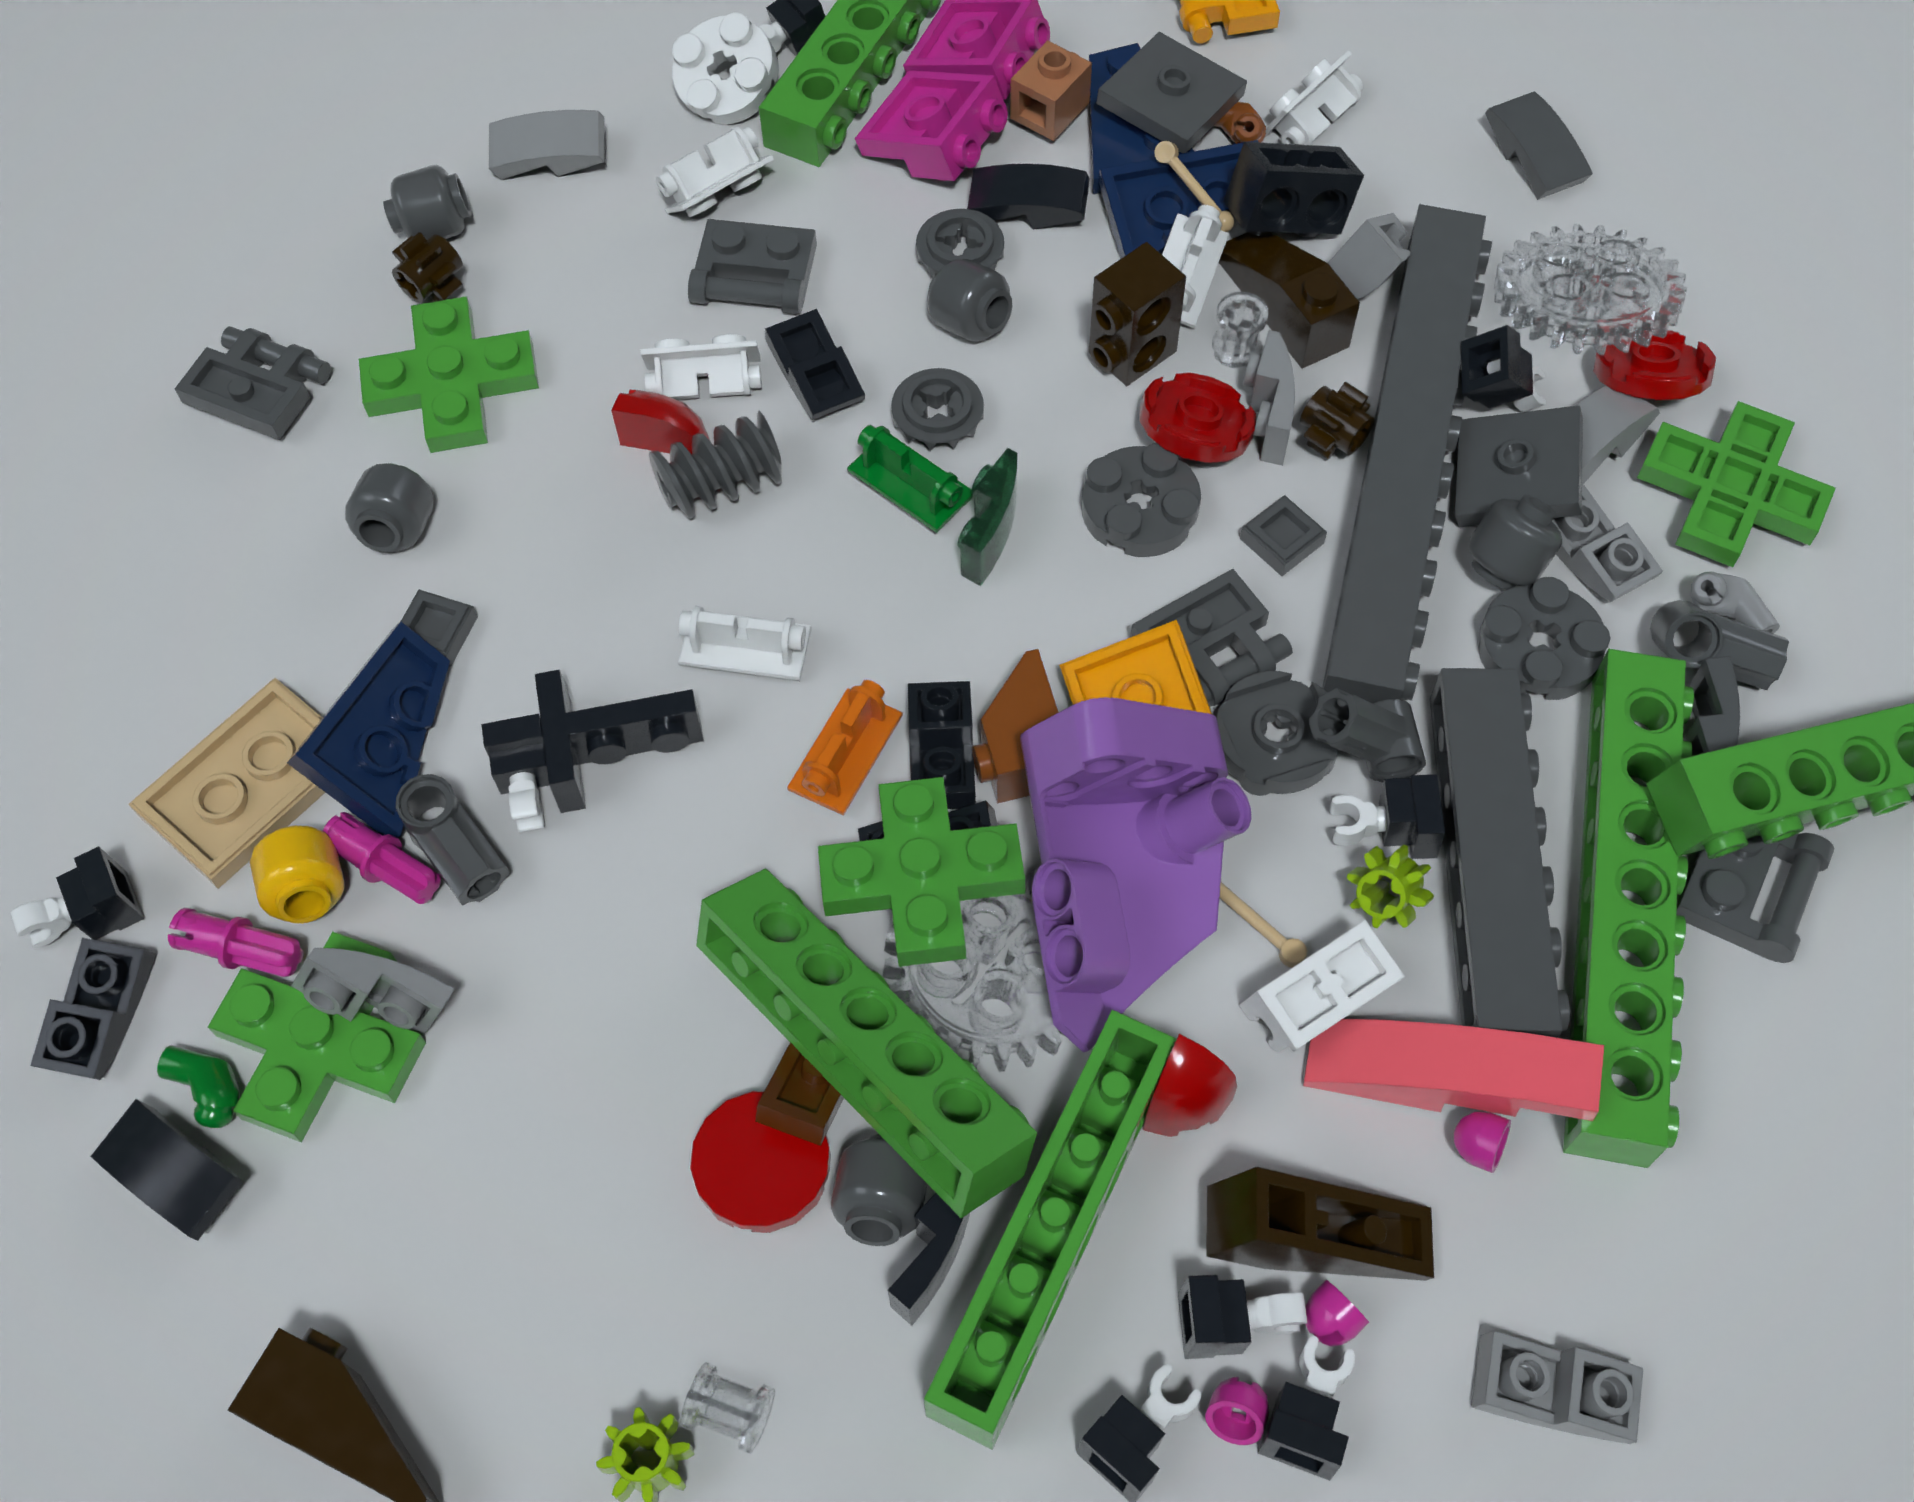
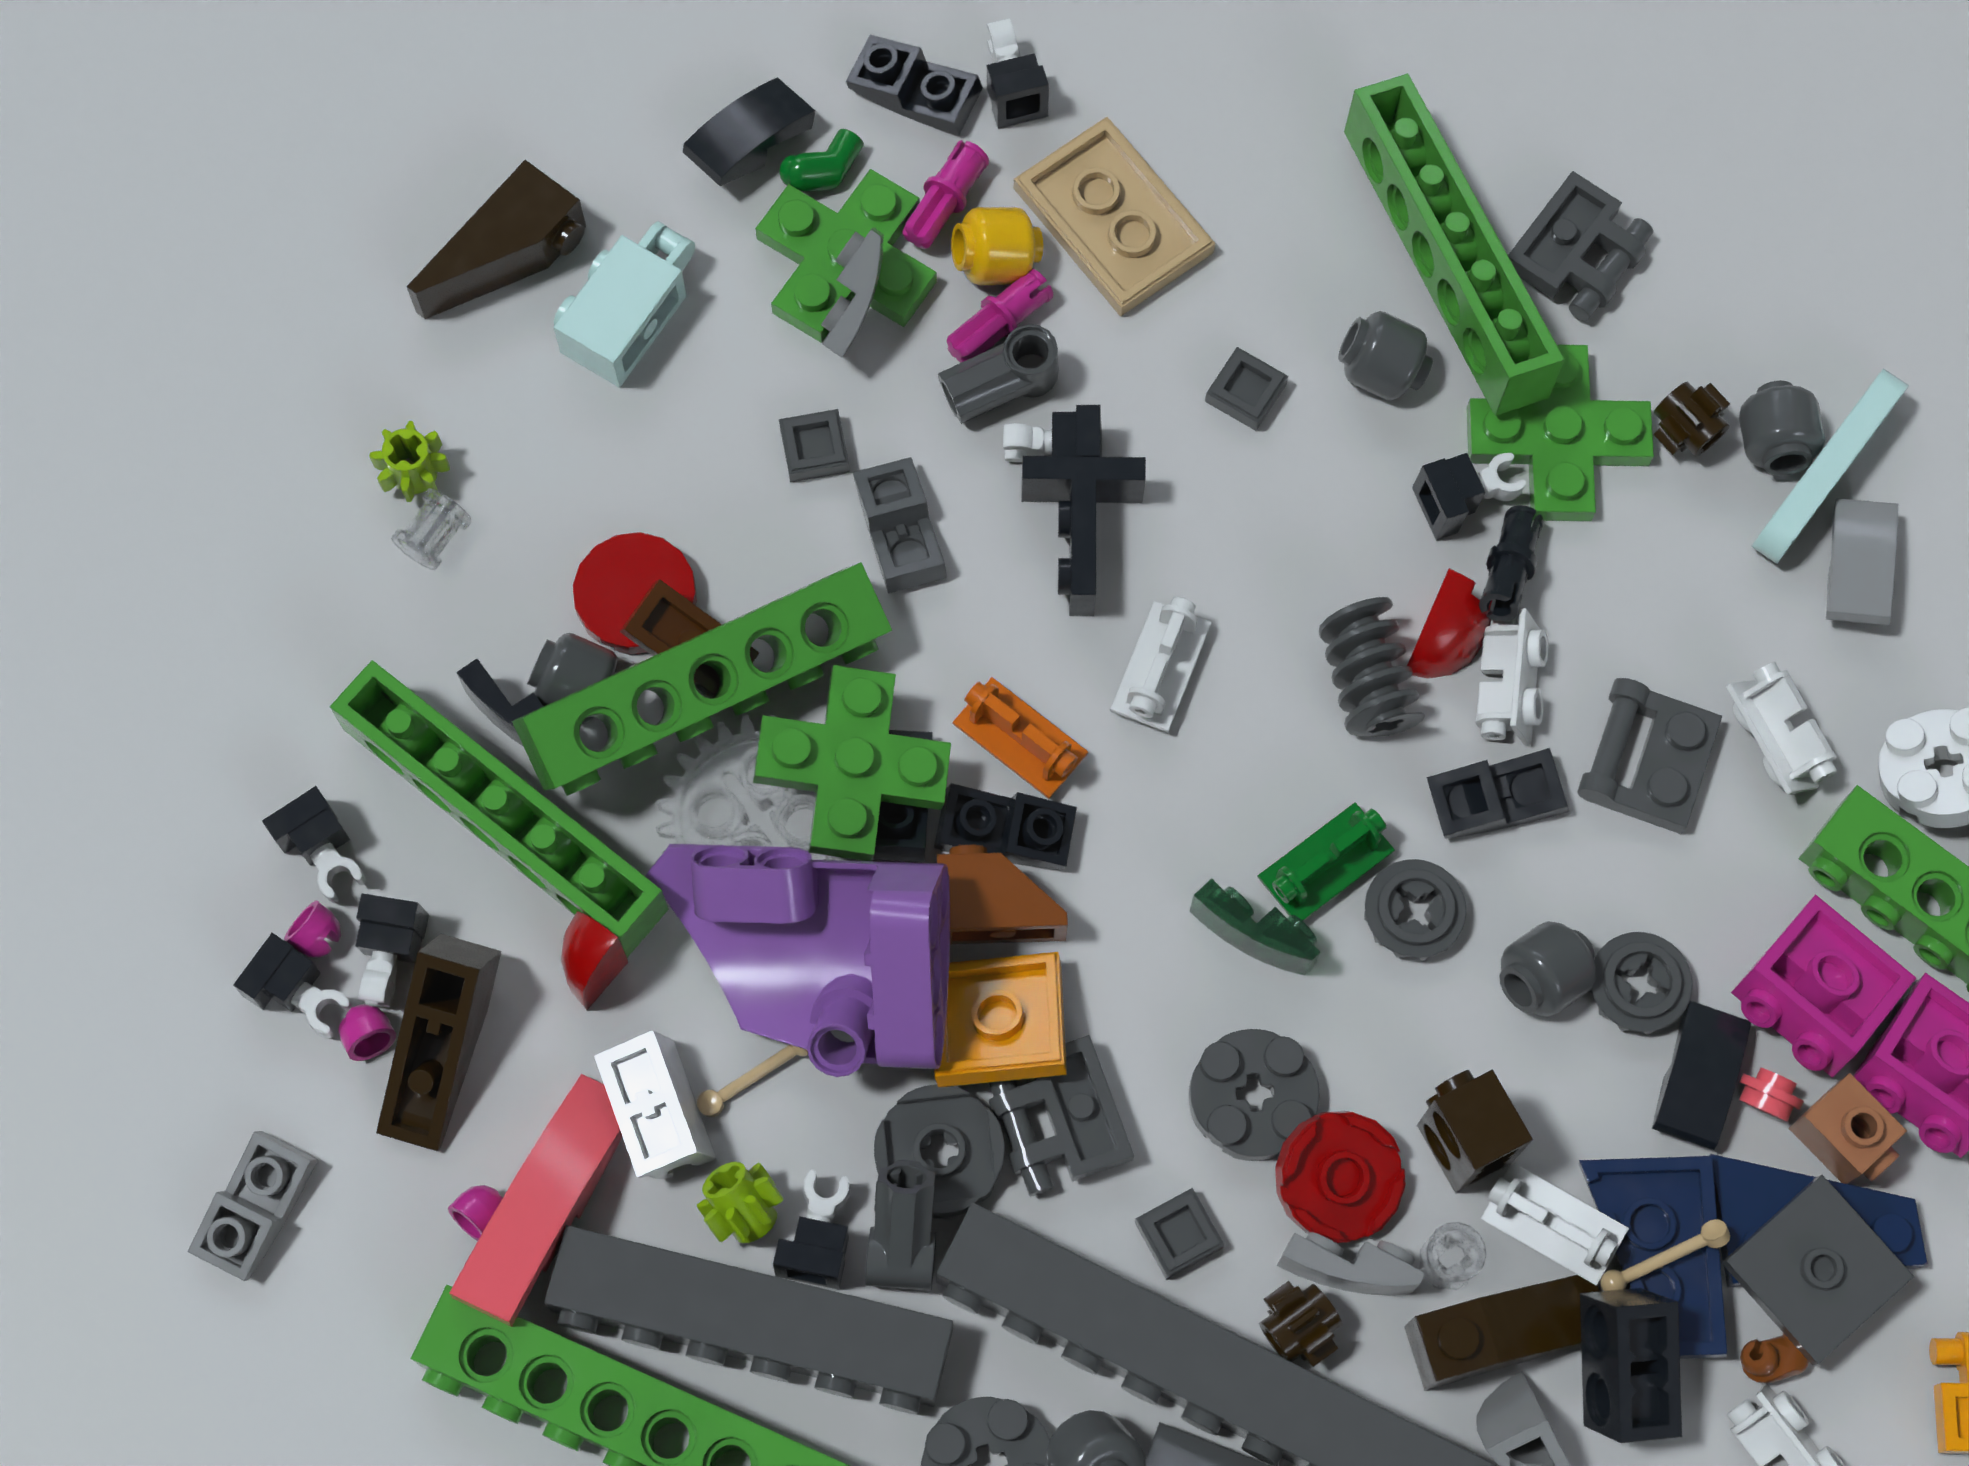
camera: 100 degrees right, 10 degrees up
(262, 458) = (1453, 245): none -> bright green brick
(377, 729) = (1127, 319): dark blue wing -> none
(406, 1255) = (624, 303): none -> light aqua brick
(486, 181) = (1830, 466): none -> light aqua beam
(525, 437) = (1453, 490): none -> black piece
(553, 1017) = (814, 445): none -> dark grey tile
(593, 376) = (1511, 563): none -> black pin
(630, 914) = (899, 525): none -> dark grey slope
(1033, 144) = (1770, 1094): none -> coral plate

